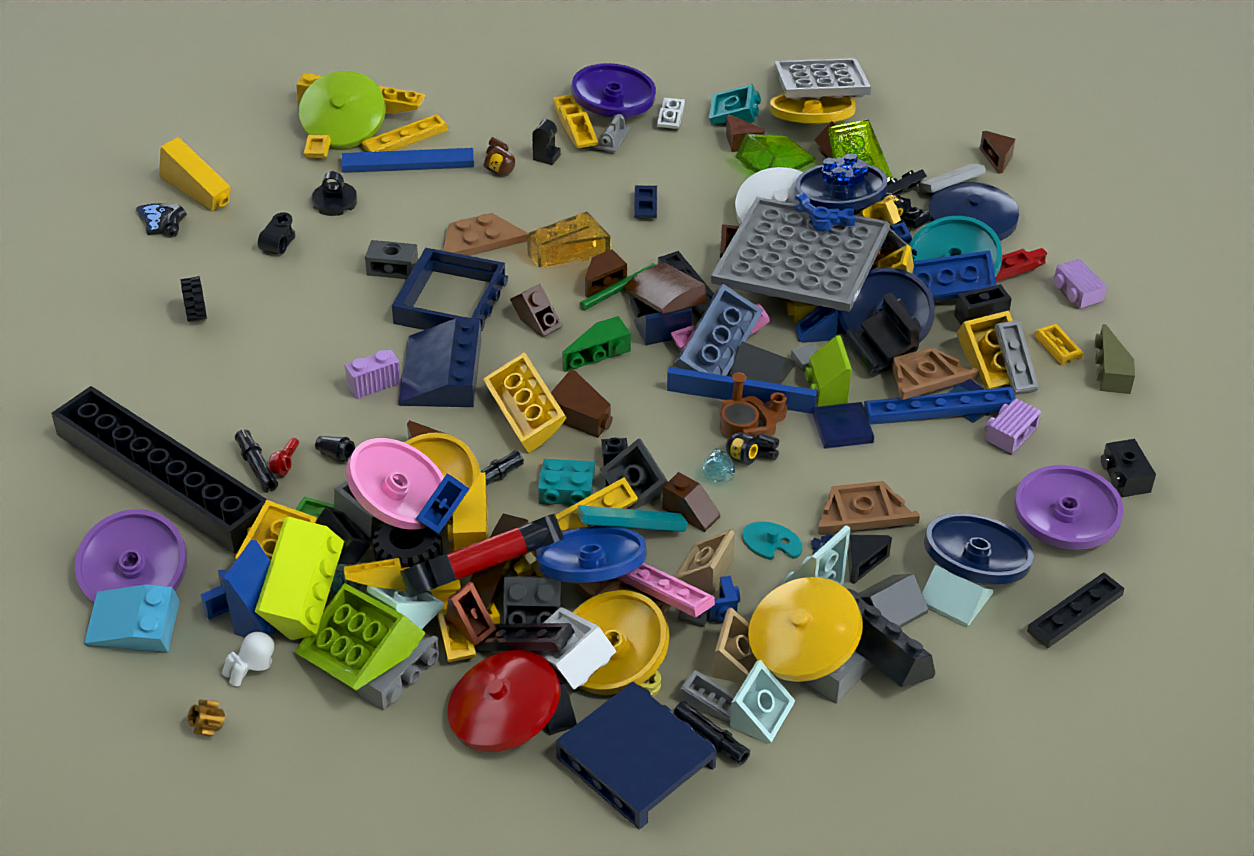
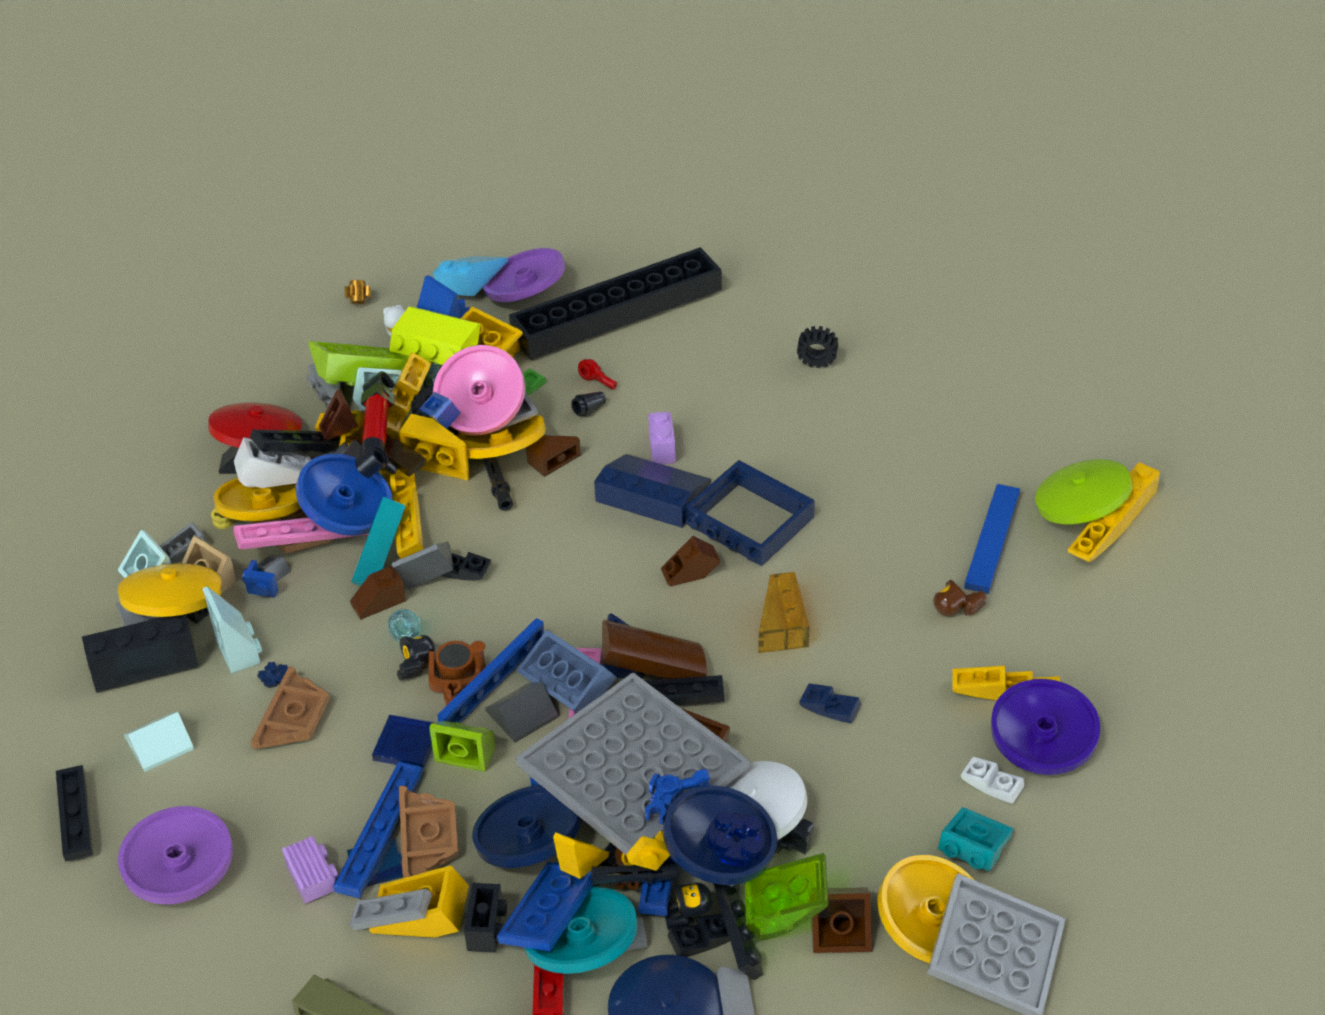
camera: 115 degrees right, 0 degrees up
(161, 217) = (966, 358): black arm -> none
(192, 175) = (1012, 375): yellow slope -> none
(252, 453) = (604, 358): black pin -> none
(277, 234) = (897, 420): black piece -> none
(317, 146) = (1036, 471): yellow plate -> none
(334, 197) = (948, 470): black tile -> none
(390, 259) = (823, 483): dark grey brick -> none
(406, 135) = (1040, 546): yellow tile -> none
(482, 235) = (837, 559): medium nougat wing -> none
(525, 401) = (562, 514): yellow slope -> none
(544, 143) = (961, 638): black leg -> none
(565, 481) = (460, 527): teal plate -> none
(582, 405) = (543, 558): reddish brown slope -> none
(598, 343) = (619, 593): green slope -> none
(604, 271) = (723, 628): reddish brown slope -> none
(609, 291) = (702, 639): green bar -> none
(613, 135) = (965, 711): light grey hinge -> none
(634, 752) = (161, 487): dark blue panel -> none
(707, 729) = (155, 532): black pin -> none
(708, 562) = (305, 584): tan slope -> none
(737, 129) = (916, 825): copper slope -> none
(766, 537) = (313, 638): teal piece -> none
(772, 151) = (858, 842): clear neon green slope -> none
(802, 354) = (512, 748): light grey tile -> none
(866, 553) = (242, 686): black slope -> none
(884, 337) = (481, 801): black piece -> none
(897, 599) = (184, 687): slope -> none
(978, 548) = (179, 760): dark blue dish -> none
(1055, 345) = (403, 986): yellow tile -> none
(1128, 468) = (191, 940): black brick -> none

